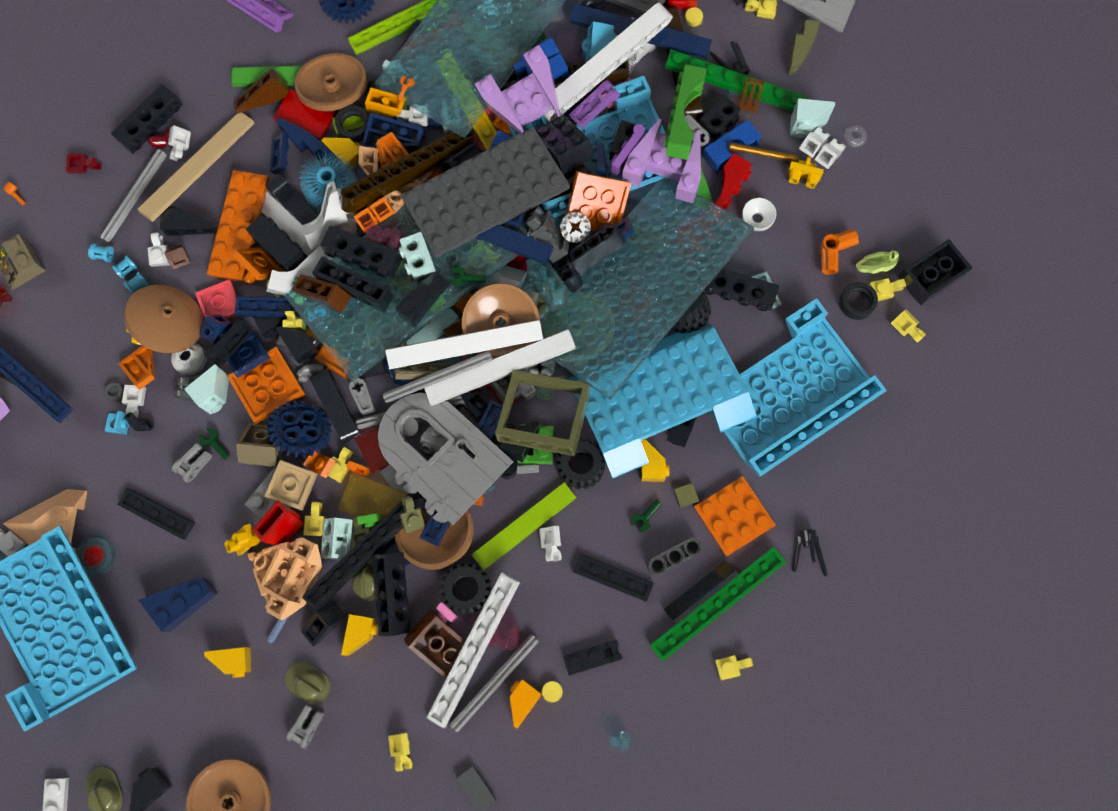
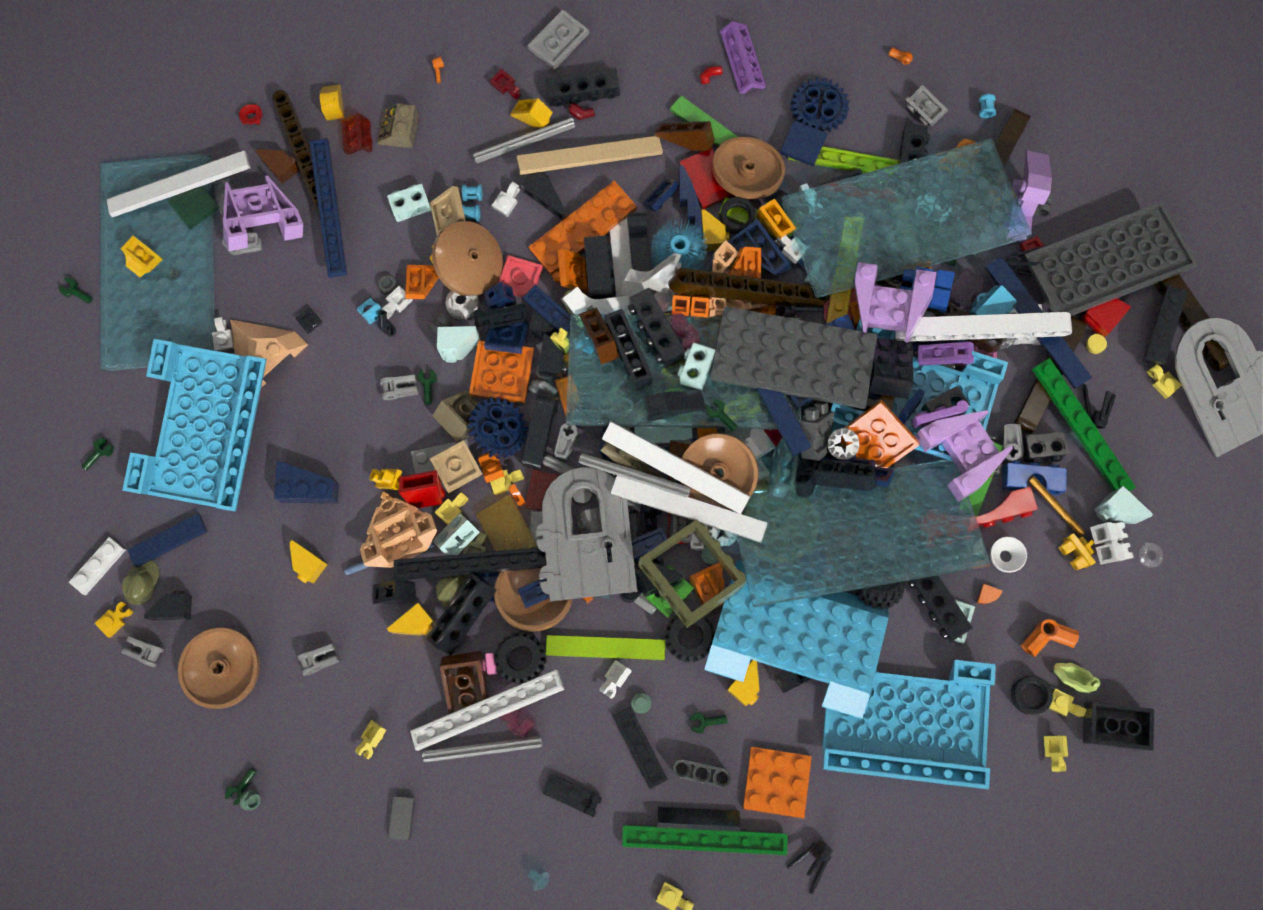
camera: 40 degrees right, 0 degrees up
(71, 471) = (309, 320): none -> black tile
(82, 316) = (410, 207): none -> light aqua brick
(96, 98) = (558, 39): none -> light grey plate
(96, 555) = (274, 399): tile -> none
(98, 740) = (167, 540): none -> dark blue tile
(101, 252) = (464, 167): medium azure bush -> none
(114, 294) = (447, 209): none -> tan plate
(121, 168) = (532, 112): none -> yellow slope
(156, 514) = (342, 404): black tile -> none
(177, 256) = (517, 216): reddish brown plate -> none
(179, 140) = (593, 123): white plate -> none
(240, 33) = (708, 72): none -> red arm
(307, 682) = (346, 627): olive piece -> none
(358, 33) = (803, 143): none -> dark blue tile
(369, 520) = (492, 543): bright green plate -> none
(405, 85) = (802, 218): orange hand -> none
(412, 517) = (524, 568): olive plate -> none
(522, 700) = (491, 781): light orange slope -> none
(552, 691) = (519, 794): light yellow tile -> none
(560, 413) = (708, 582): none -> orange wing
(586, 544) = (641, 703): none -> sand green plate
(681, 135) = (991, 440): bright green arch -> none
(686, 495) = (752, 732): olive tile -> none
(748, 107) = (1078, 456): clear orange tile -> none
(768, 254) = (988, 594): none -> orange tile
(802, 45) = (1170, 442): olive slope -> none

